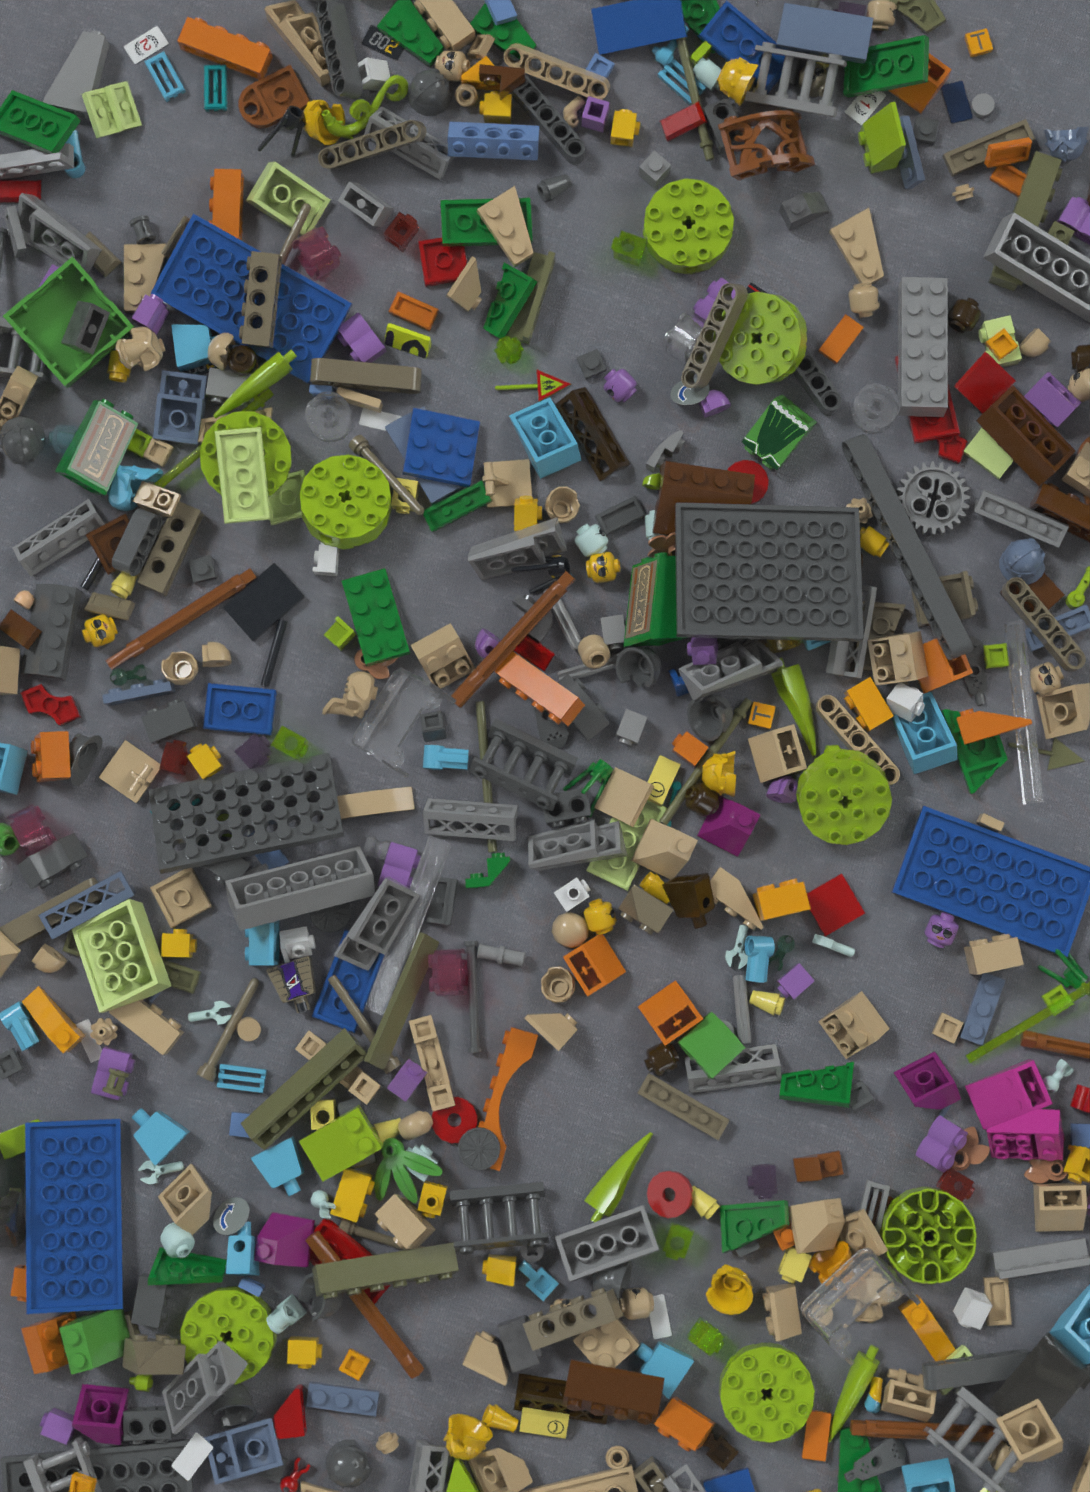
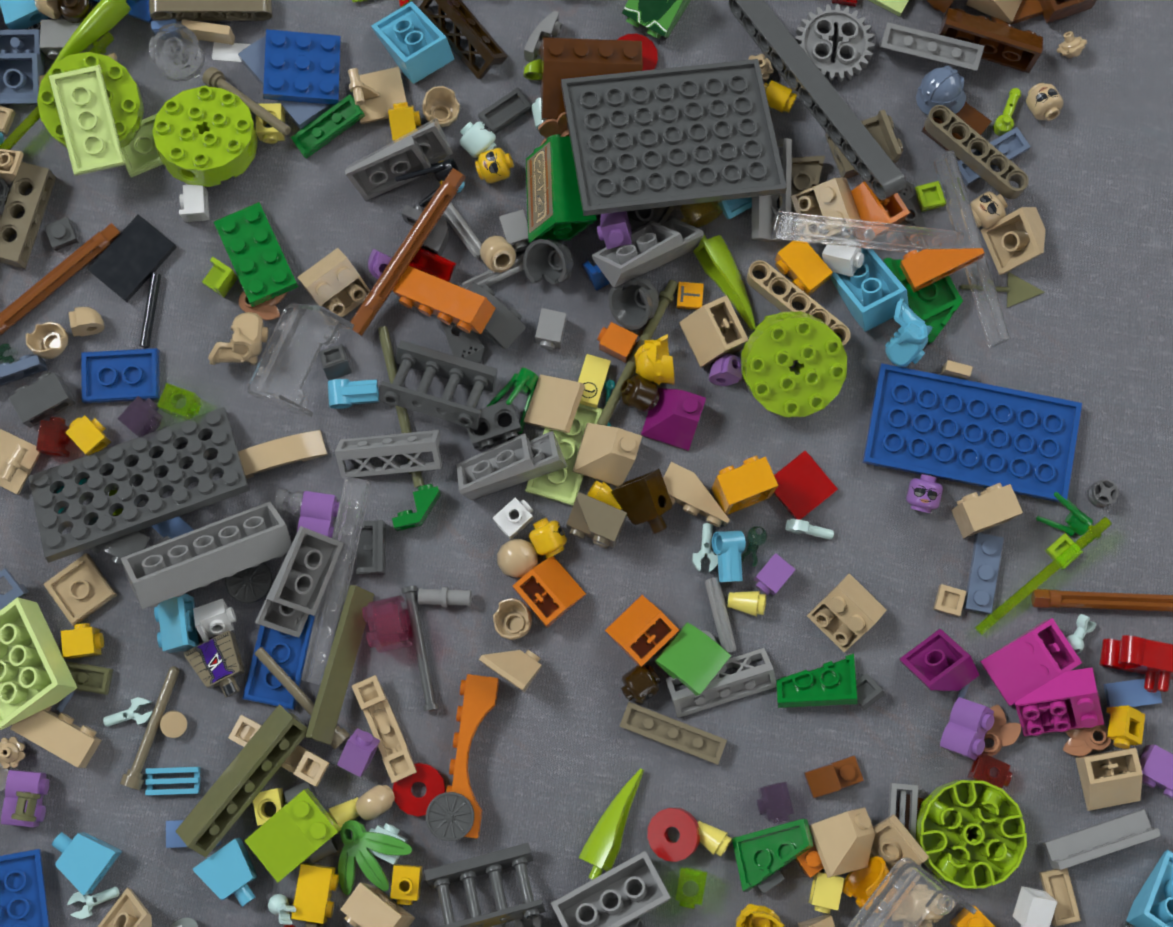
camera: 15 degrees left, 5 degrees down
(930, 689) = (863, 233): none -> clear tile
(952, 789) = (909, 339): none -> medium azure head

